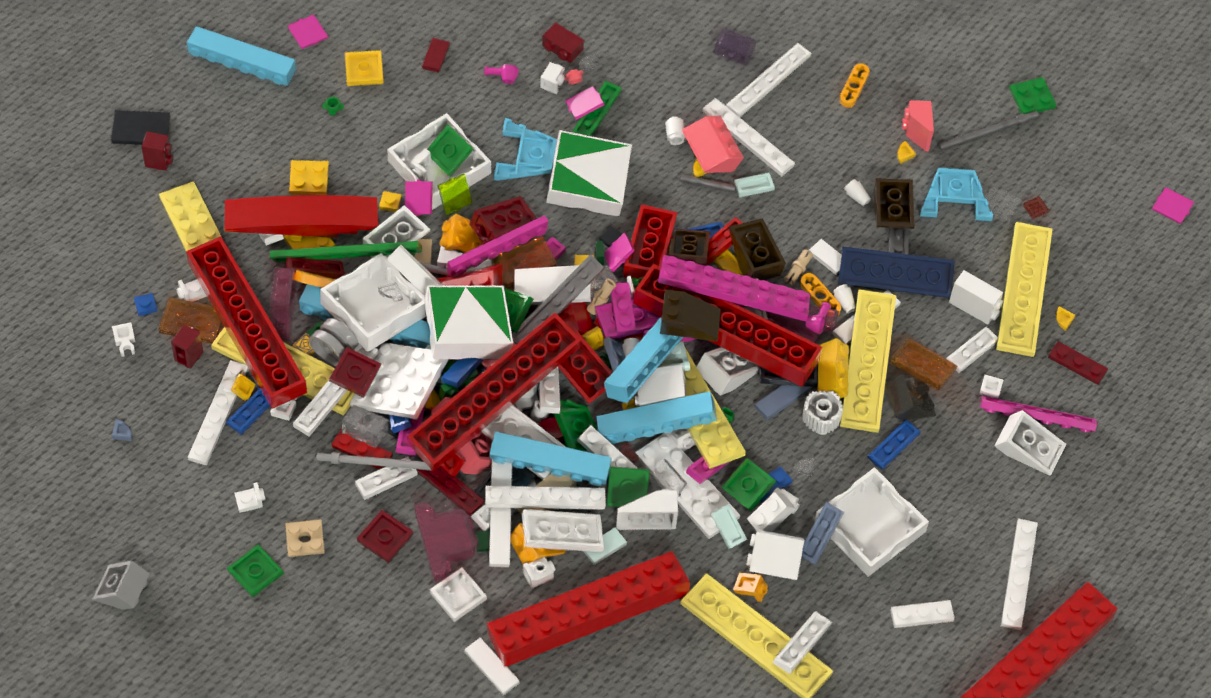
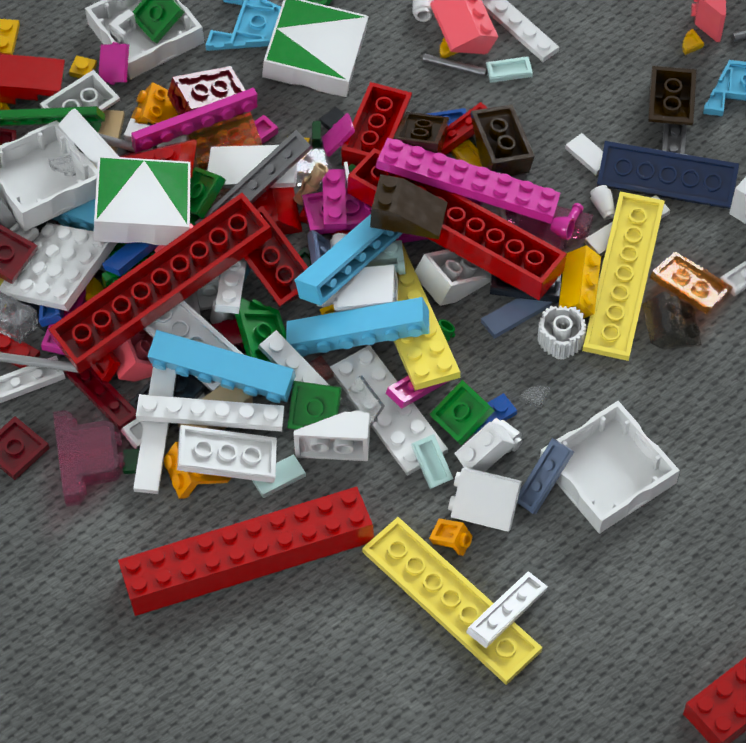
camera: 10 degrees right, 0 degrees up
(454, 194) = (156, 61): clear neon green piece -> none
(458, 594) = (91, 523): white plate -> none
(491, 666) = (120, 613): white tile -> none
(535, 576) = (191, 508): white brick -> none
(594, 338) = (296, 232): yellow tile -> none
(682, 438) = (387, 353): white bracket -> none
(798, 267) = (551, 163): tan pin -> none
(818, 288) = (572, 189): light orange beam -> none
(857, 192) = (630, 83): white cone -> none
(893, 444) = (646, 376): blue tile -> none
(922, 614) = (662, 584): white plate -> none

